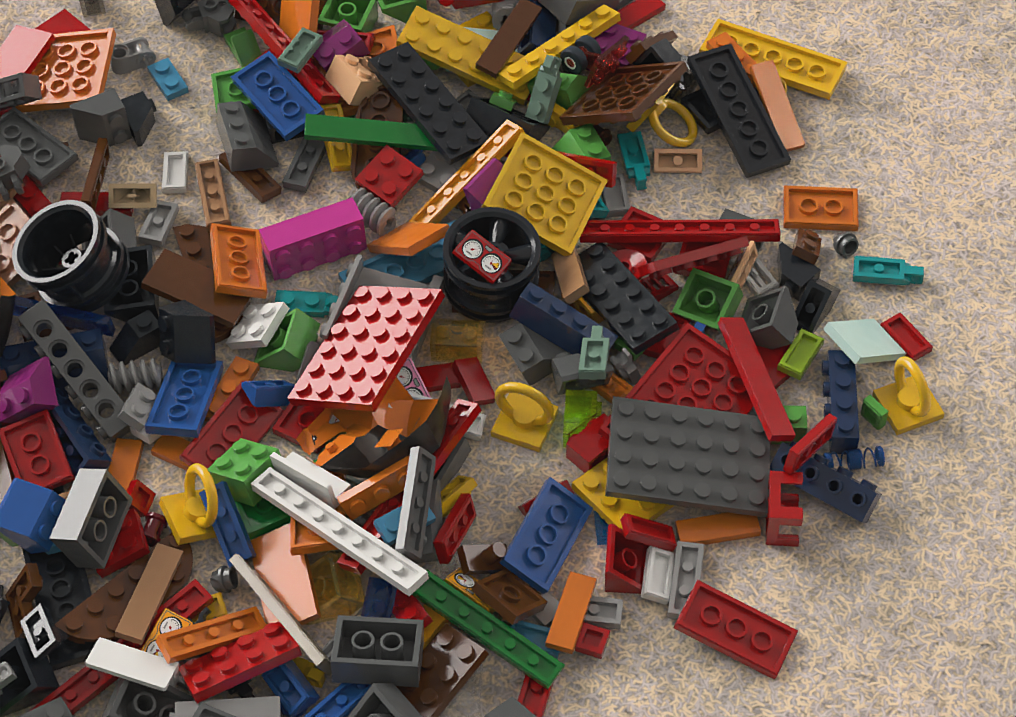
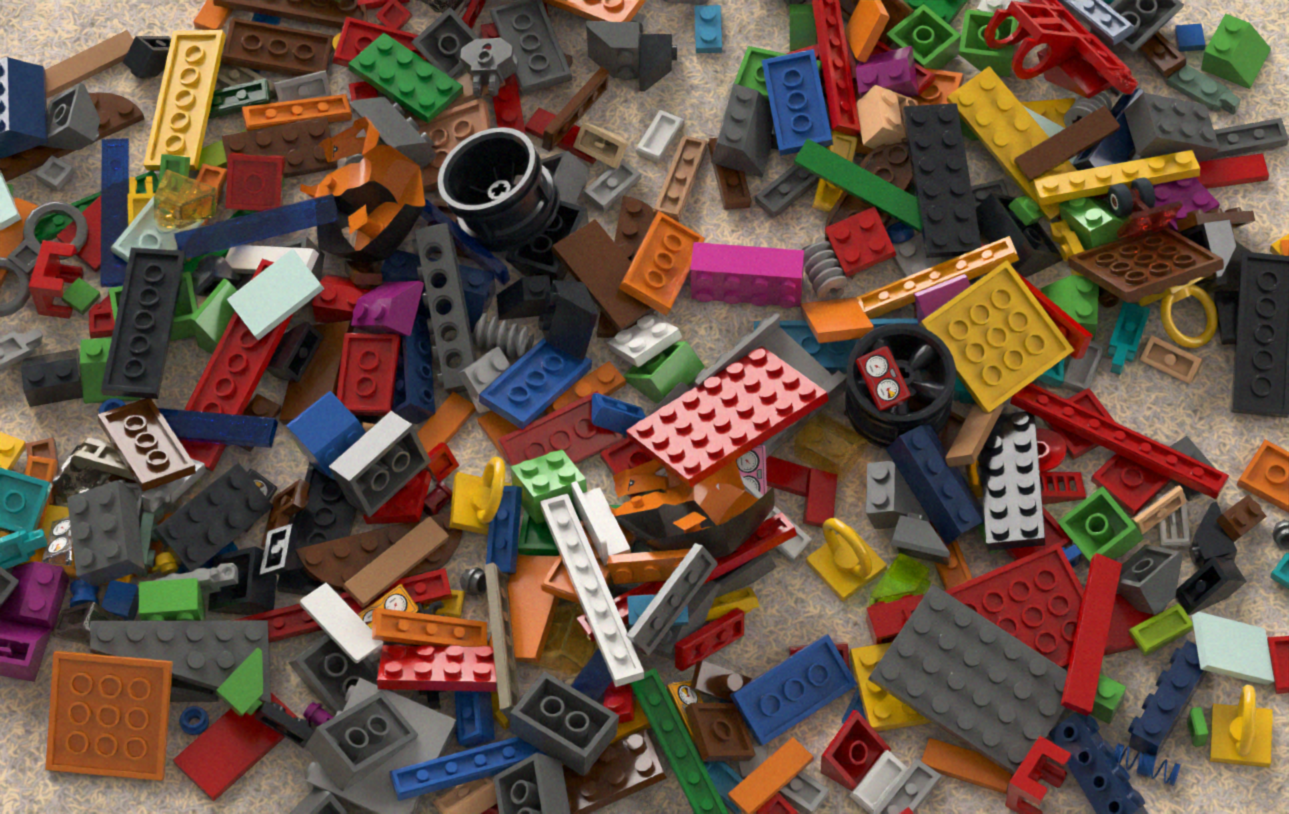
camera: 30 degrees right, 5 degrees up
(300, 50) = (842, 63): sand green plate -> none
(312, 303) = (704, 335): teal hinge -> none
(545, 90) = (1070, 220): sand green hinge -> none
(594, 355) = (936, 533): sand green hinge -> none
(625, 366) = (975, 556): light grey plate -> none
(648, 532) = (892, 736): red tile -> none
(693, 258) = (1119, 478): red plate -> none
(810, 443) = (1097, 728): red tile -> none

